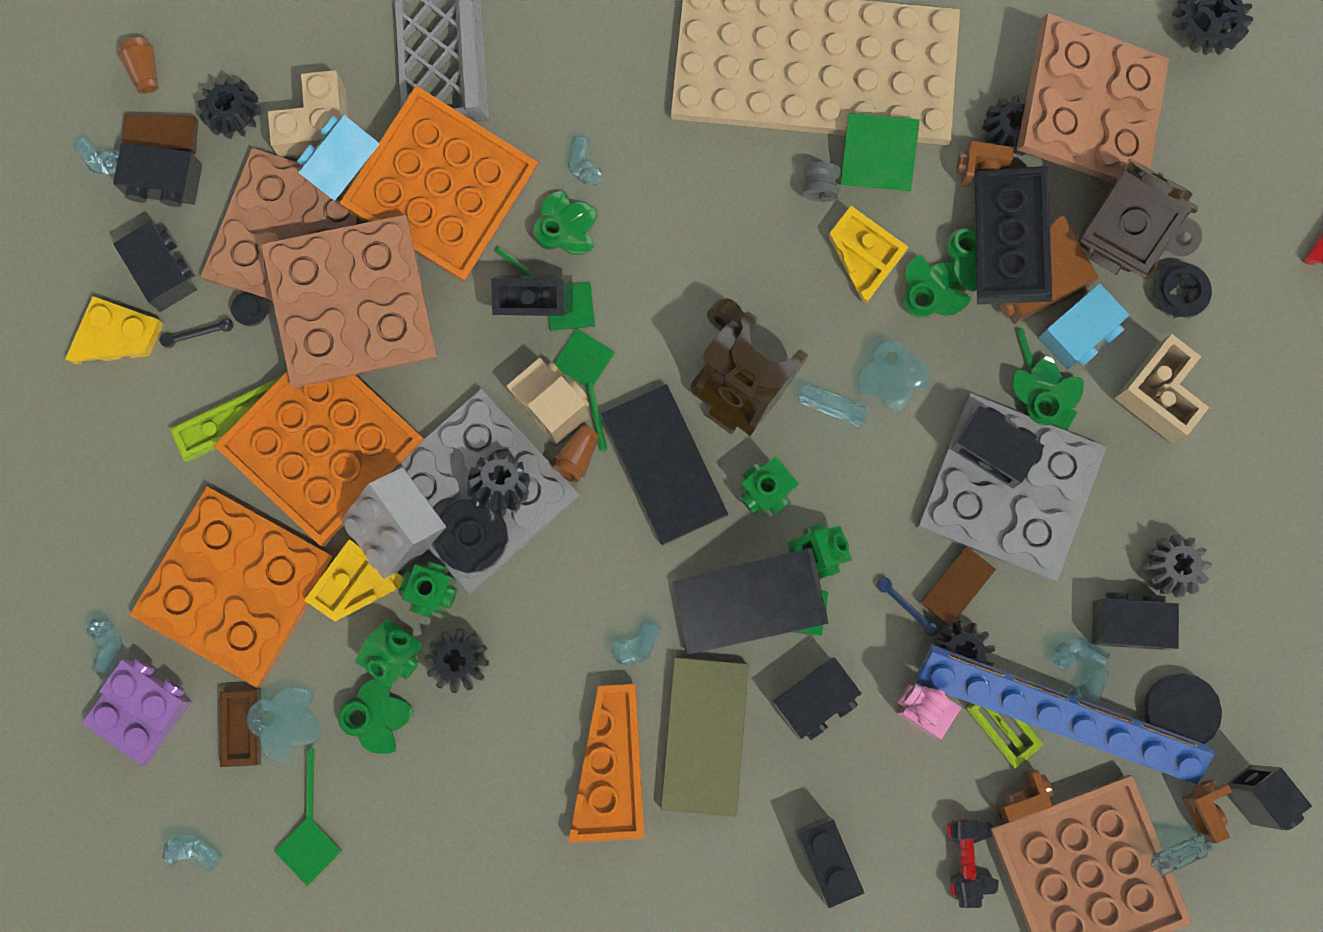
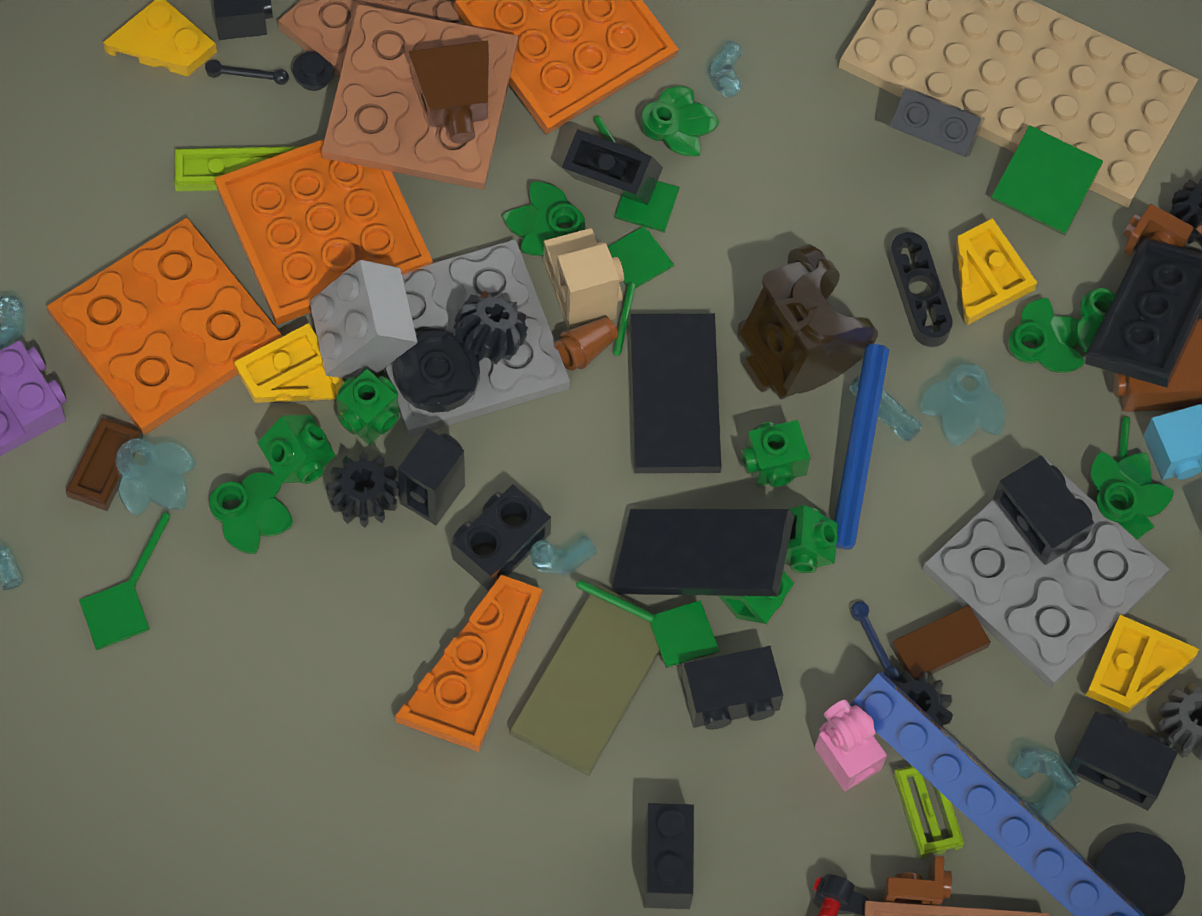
camera: 20 degrees right, 15 degrees down
(375, 288) = (453, 86): none -> reddish brown torso
(492, 361) = (541, 218): none -> green plate
(508, 630) = (432, 475): none -> black brick
(592, 656) = (509, 543): none -> black brick
(757, 669) = (679, 632): none -> green piece
(774, 140) = (937, 122): none -> black brick
(809, 263) = (917, 306): none -> black beam
(821, 181) = (971, 185): dark grey wheel -> none
(829, 448) = (860, 444): none -> blue axle
(1112, 537) = (1136, 664): none -> yellow wing

